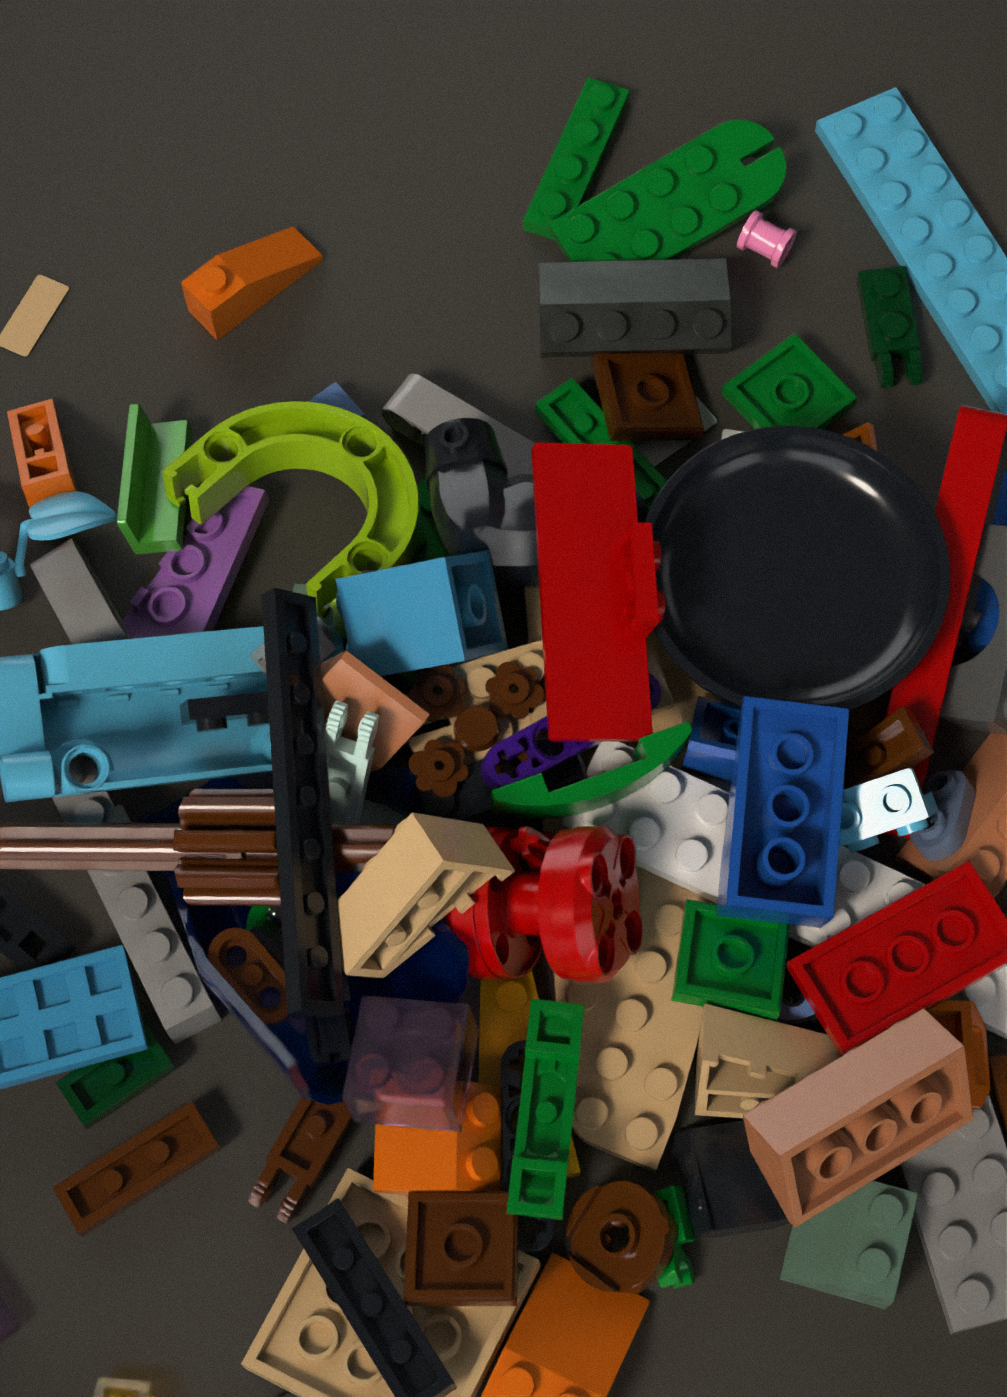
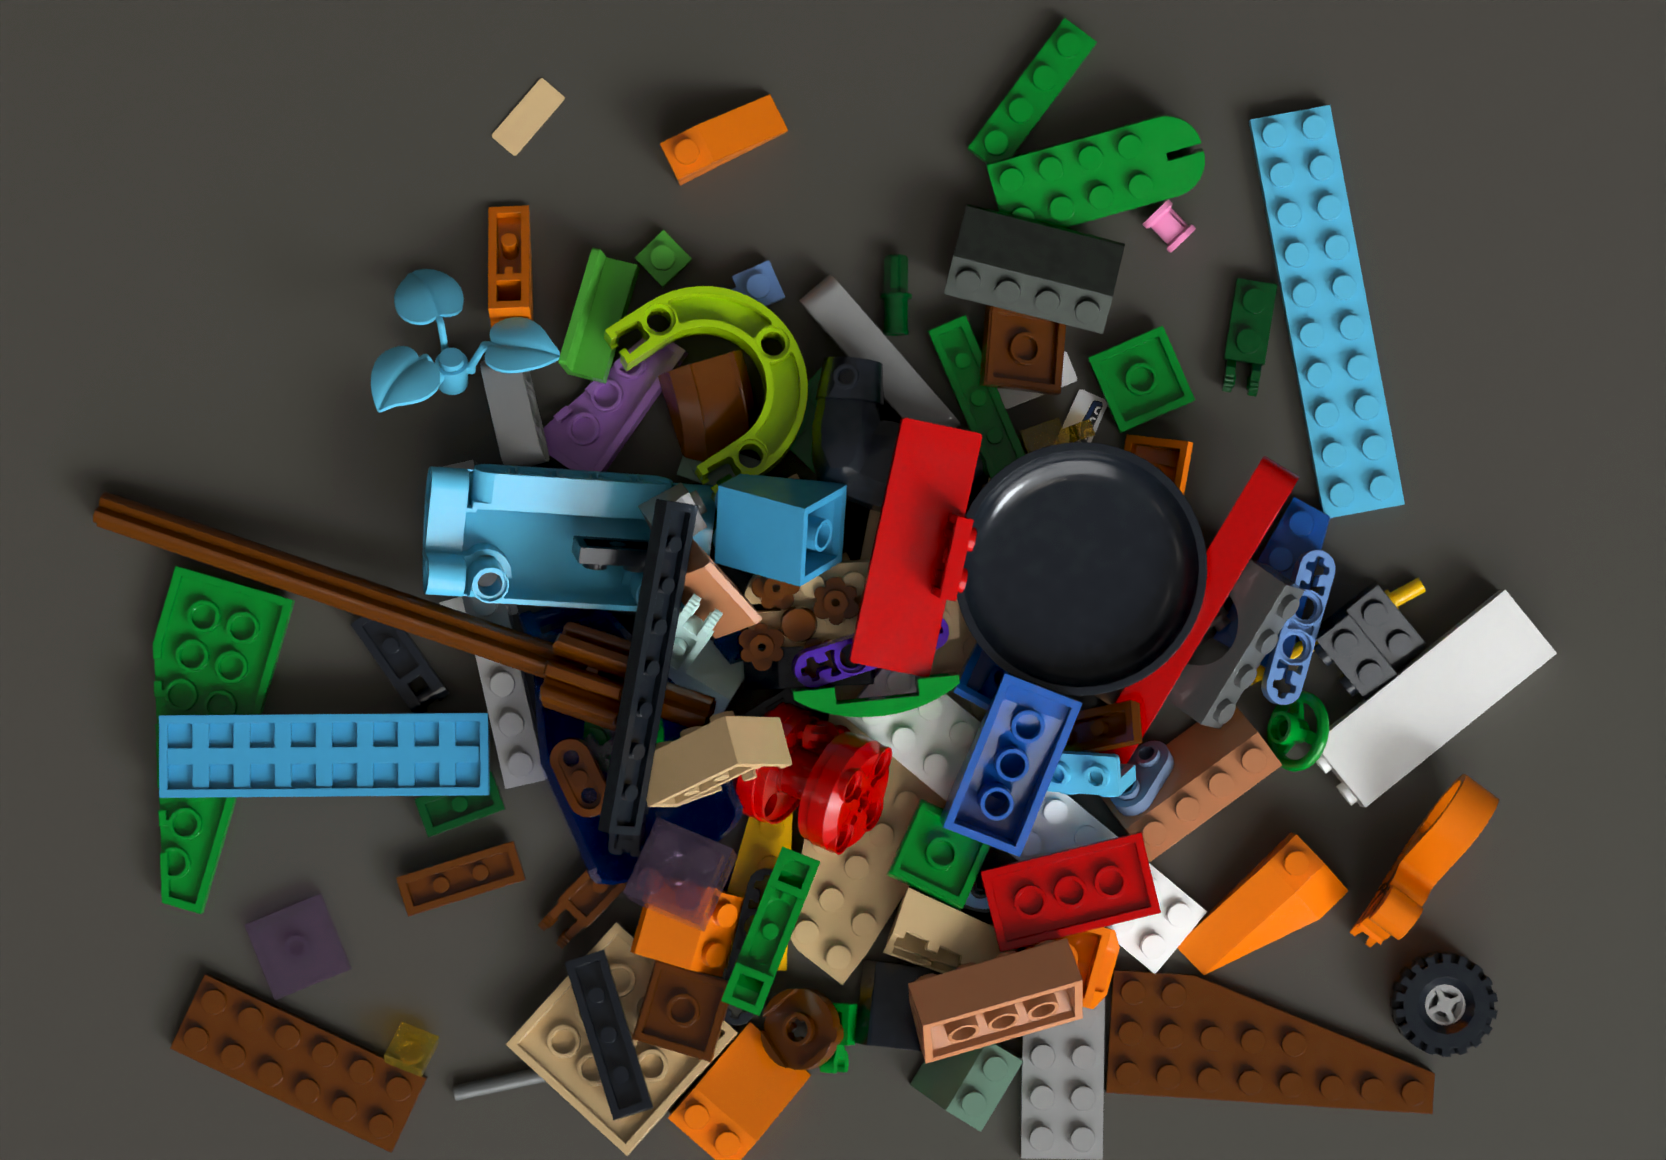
camera: 15 degrees right, 20 degrees up
(214, 407) = (663, 259): none -> bright green plate
(299, 526) = (709, 404): none -> reddish brown slope
(488, 381) = (896, 295): none -> dark green axle

